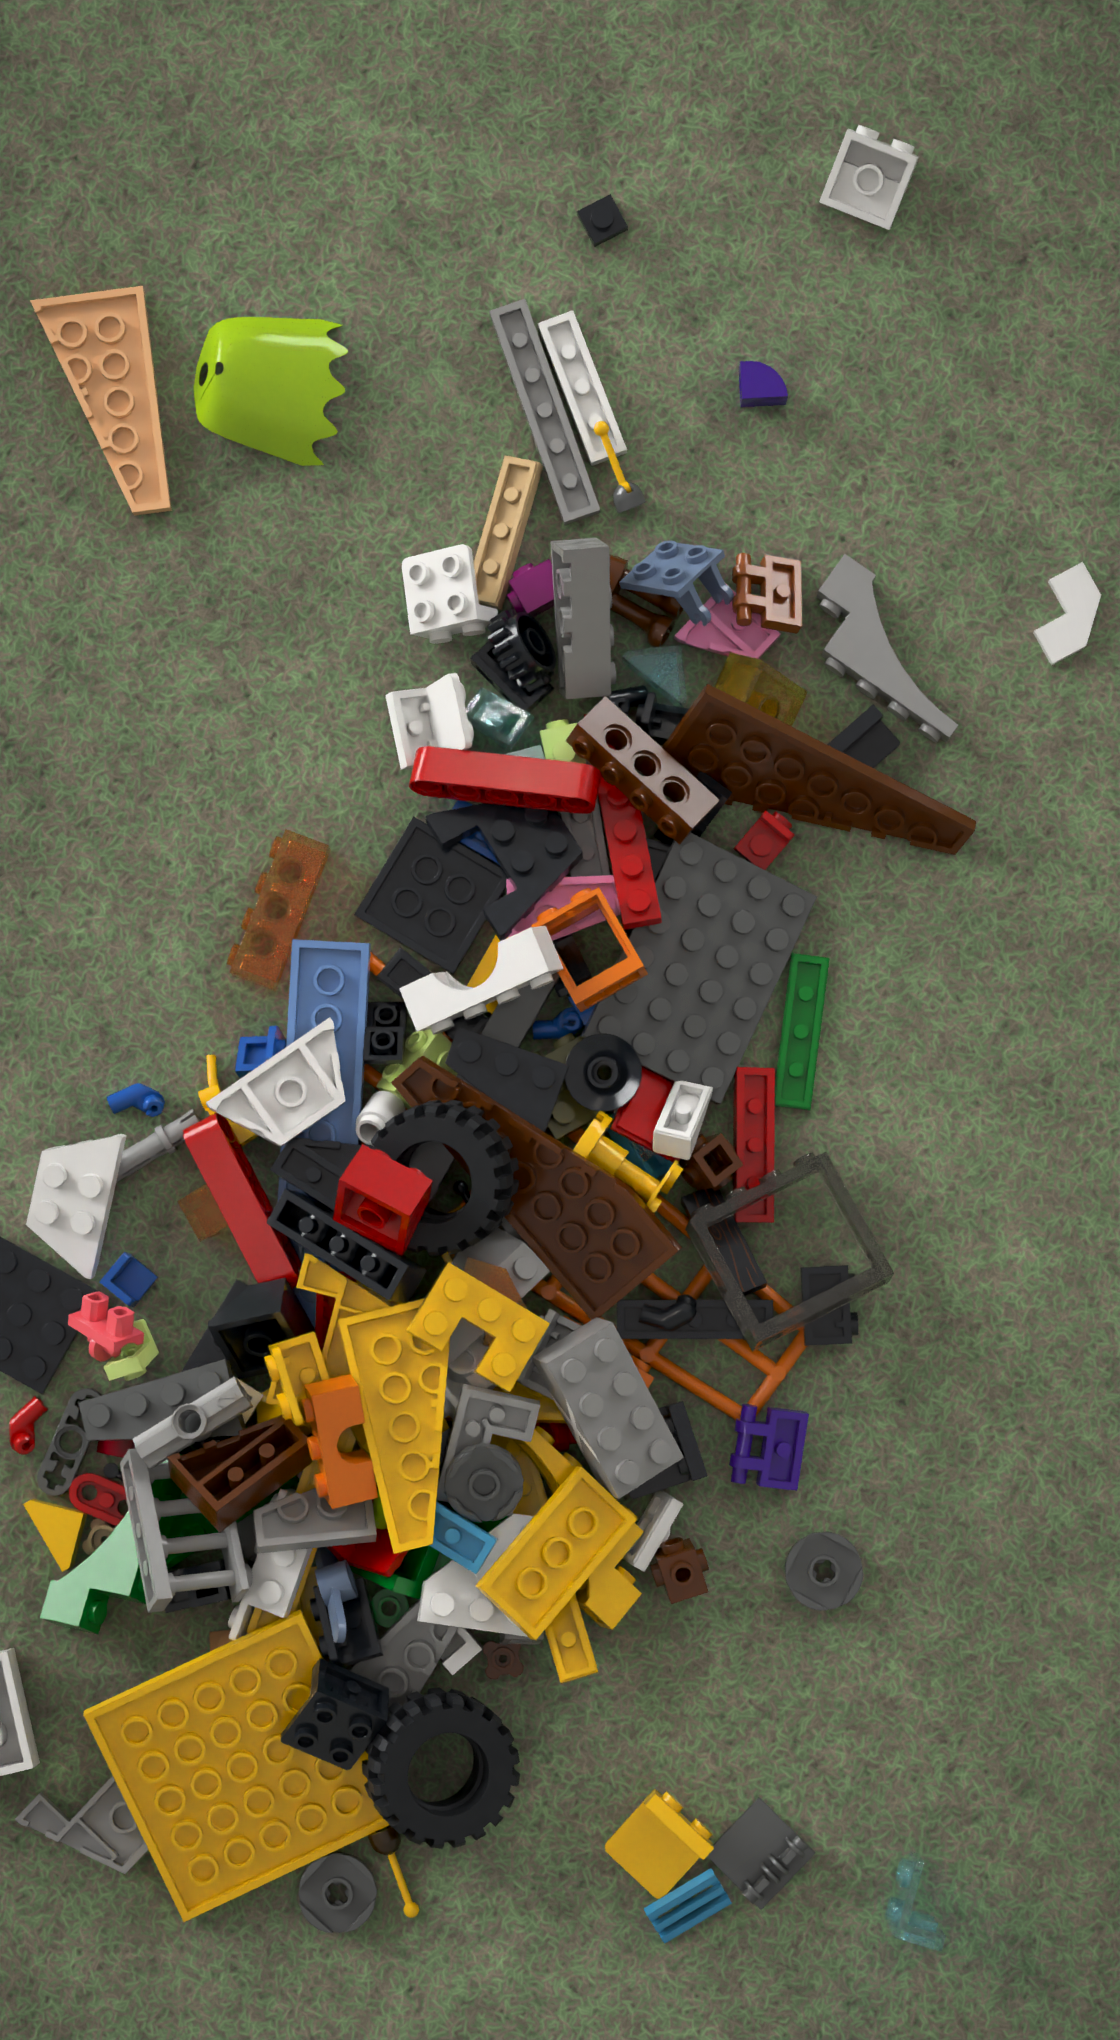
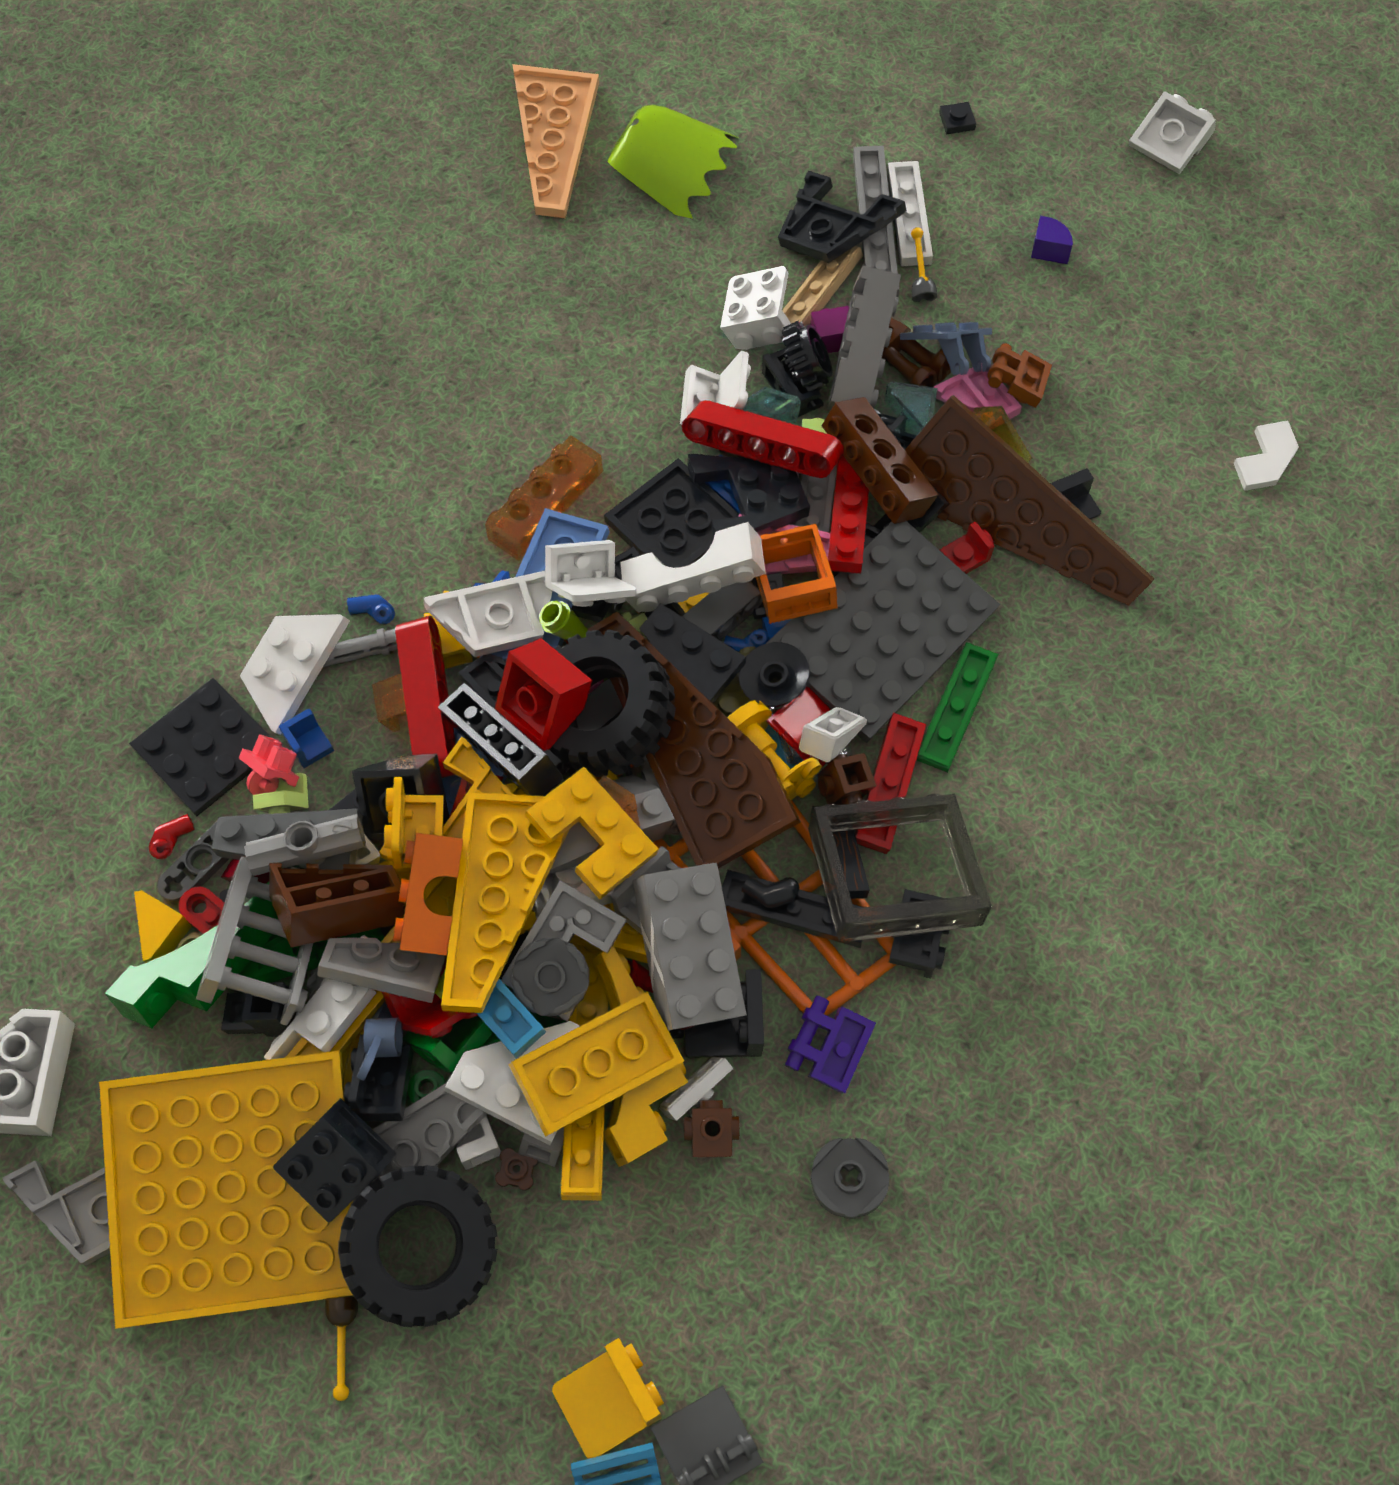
camera: 15 degrees right, 20 degrees down
(340, 1915) = (253, 1343): dark grey plate -> none
(360, 1081) = (561, 621): none -> lime cone
(371, 1025) = (585, 573): none -> white bracket
(489, 448) = (829, 230): none -> black wing
(865, 653) = (1089, 439): light grey arch -> none

